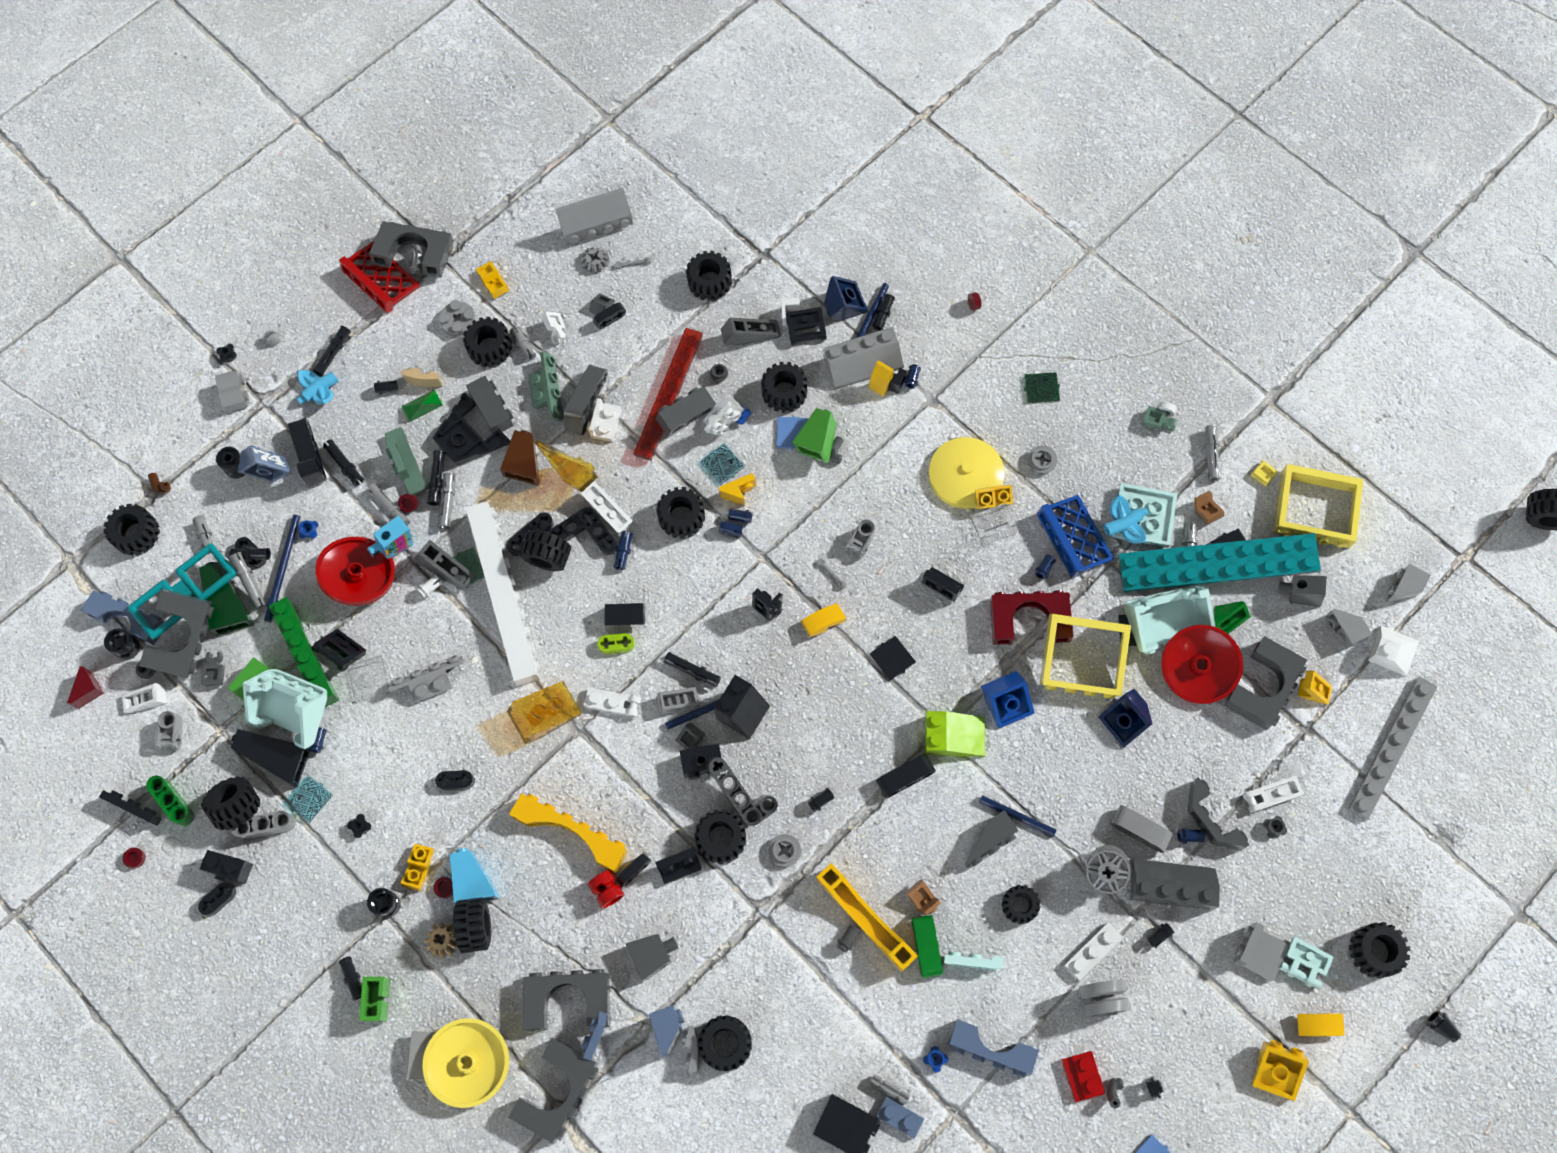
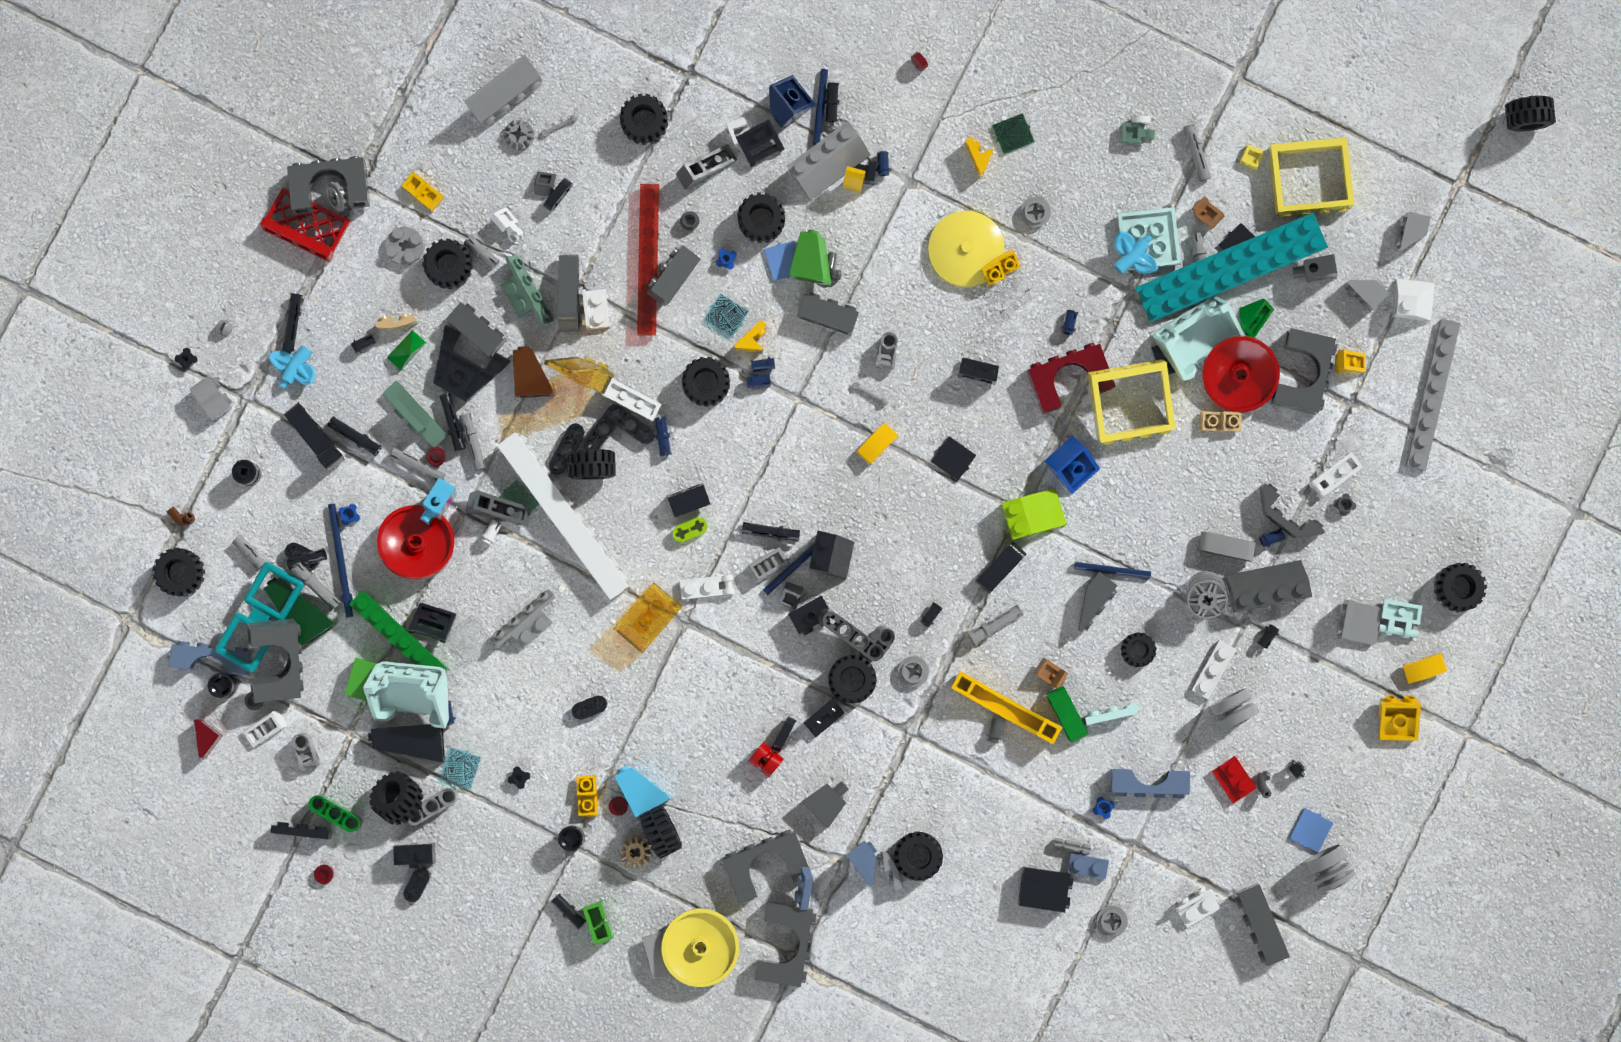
camera: 20 degrees left, 15 degrees up
(213, 672) = (320, 682): dark grey plate -> none
(263, 464) = (280, 465): sand blue slope -> none
(532, 813) = (753, 727): yellow arch -> none
(722, 416) = (711, 267): white bracket -> none
(765, 606) = (817, 448): black bracket -> none
(817, 489) = (828, 313): none -> dark grey brick
(873, 832) = (987, 629): none -> light grey pin
(1004, 397) = (979, 160): none -> yellow slope
(1060, 538) = (1079, 293): blue fence -> none
(1127, 717) = (1186, 446): dark blue slope -> none
(1168, 705) = (1220, 421): none -> tan slope
(1443, 1025) = (1528, 633): black cone -> none

